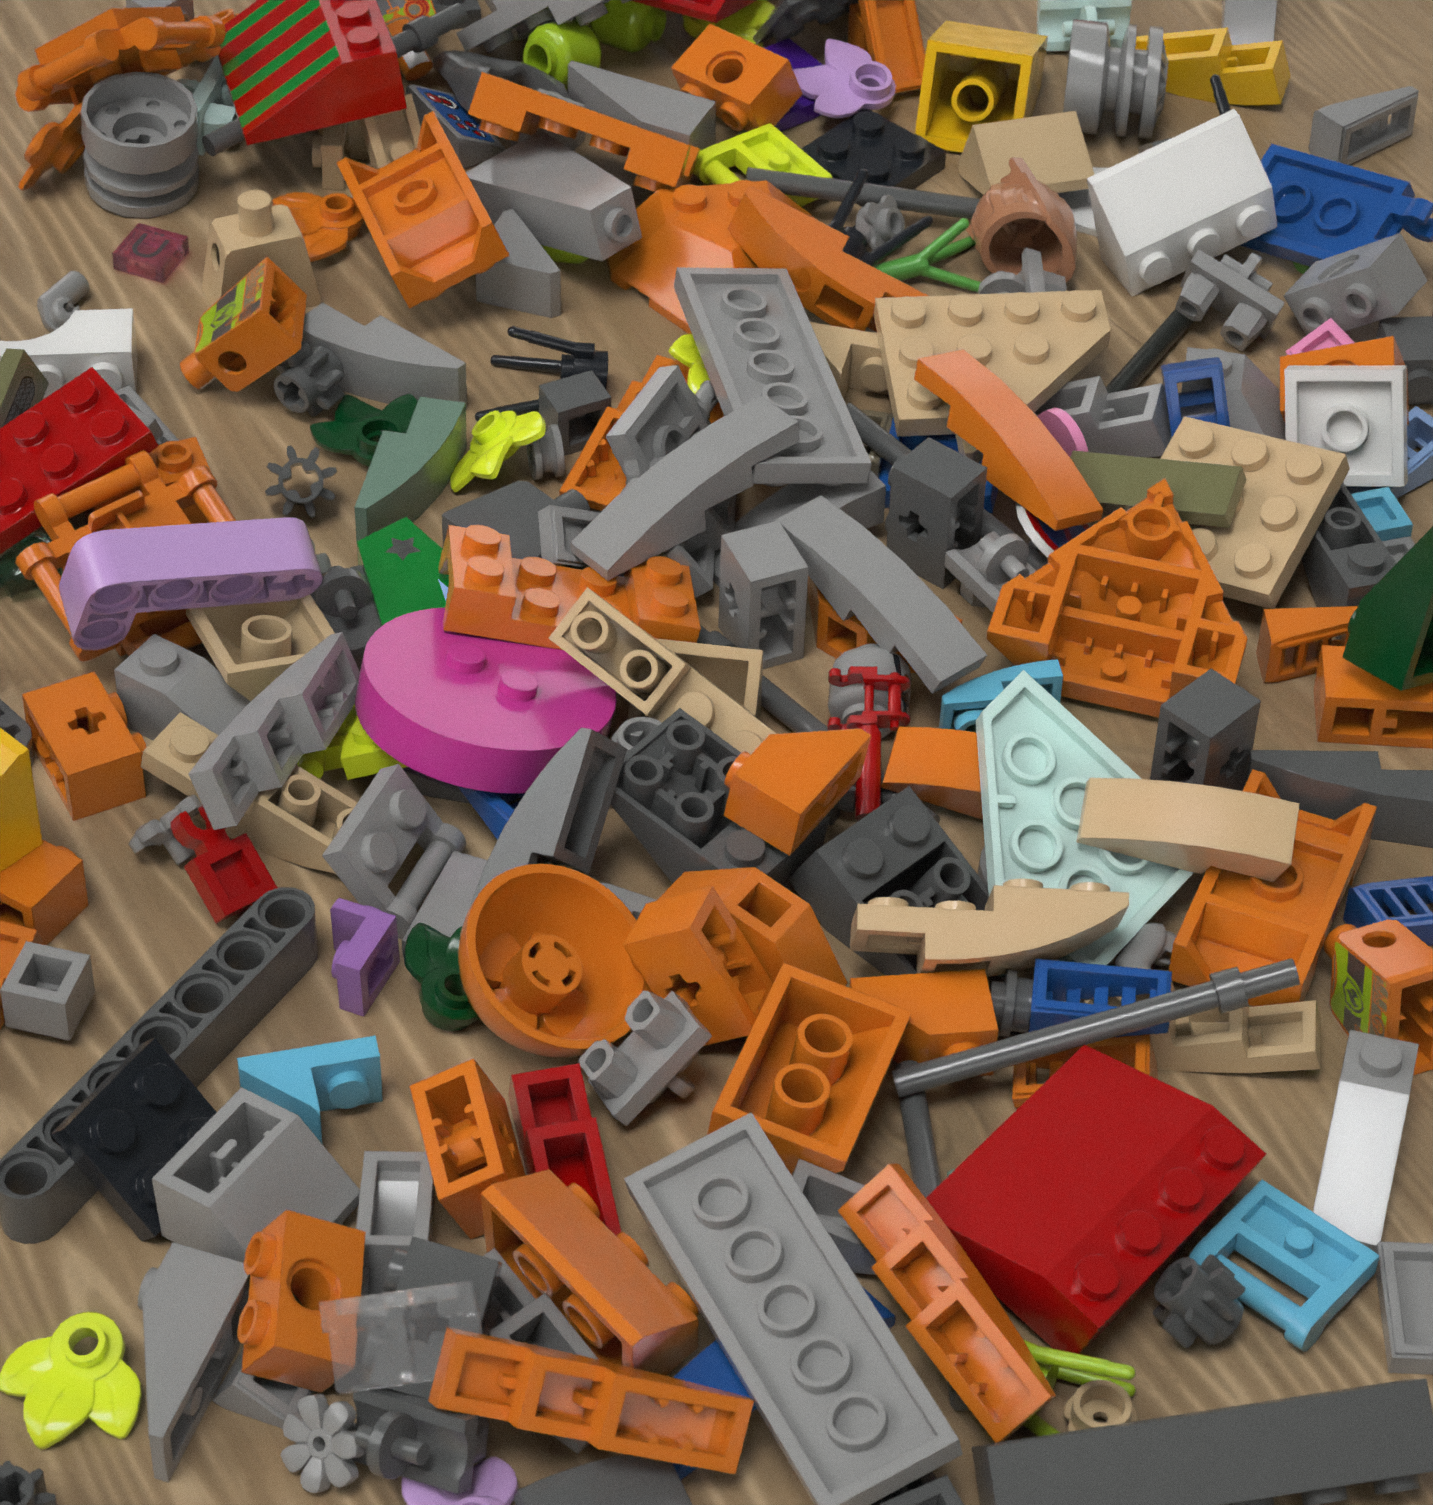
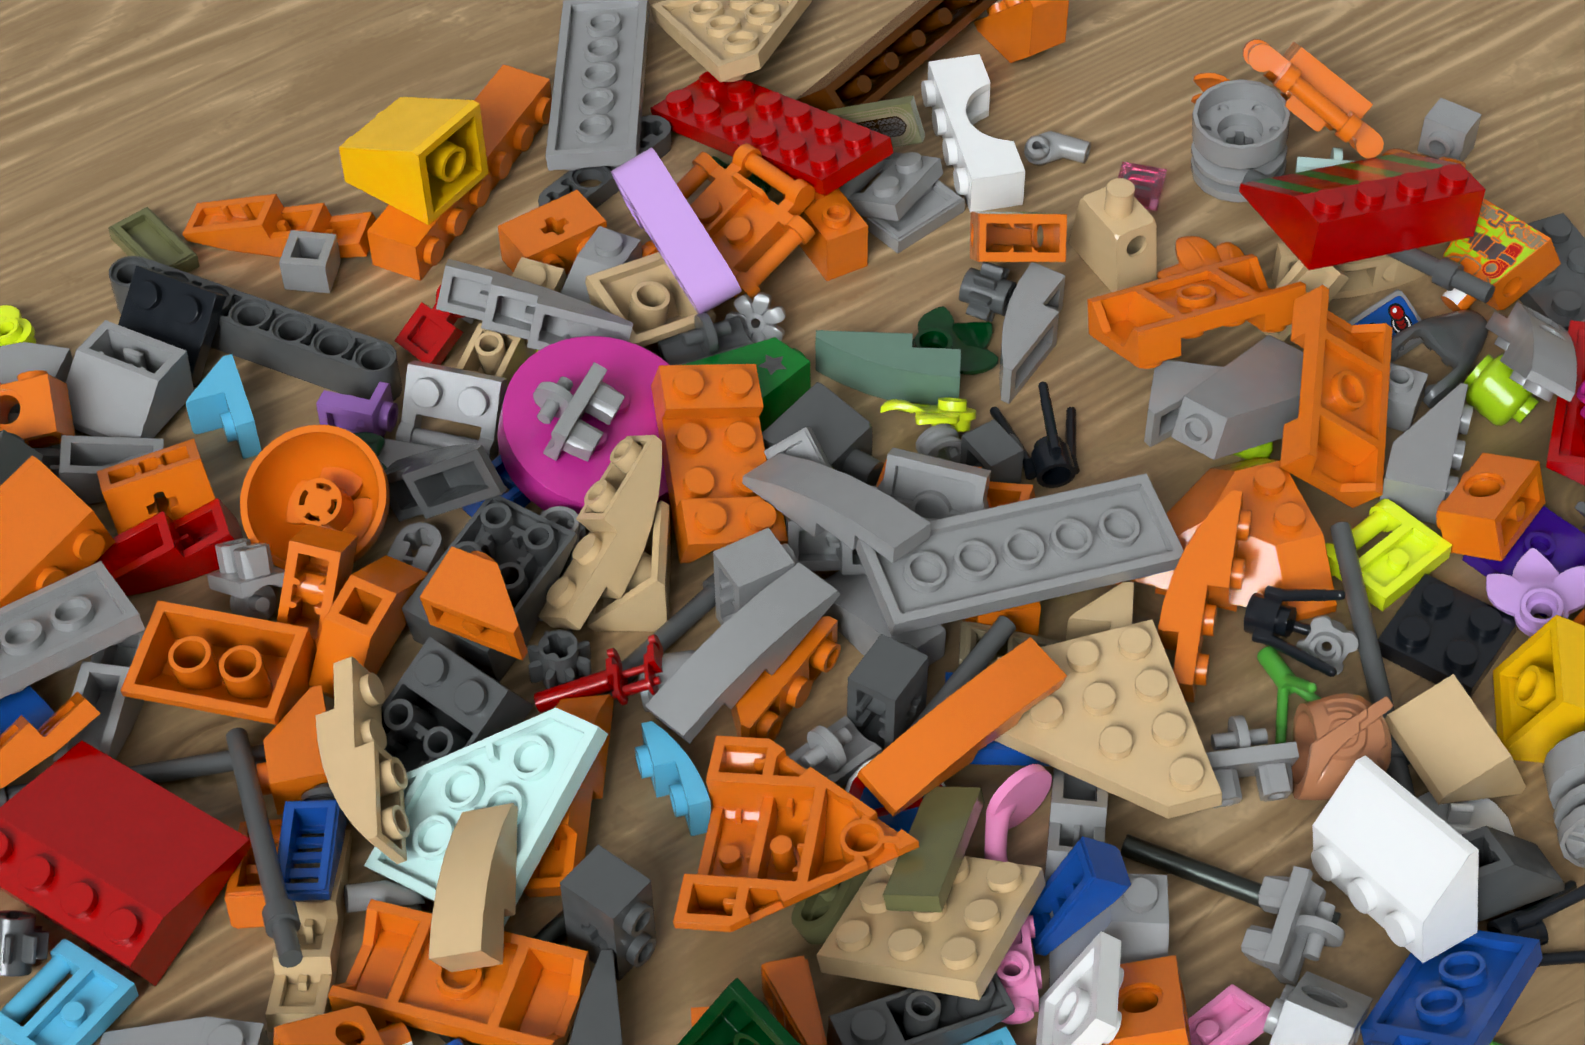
camera: 85 degrees right, 5 degrees up
(309, 466) = (860, 304): dark grey gear -> none
(508, 670) = (571, 432): none -> light grey hips

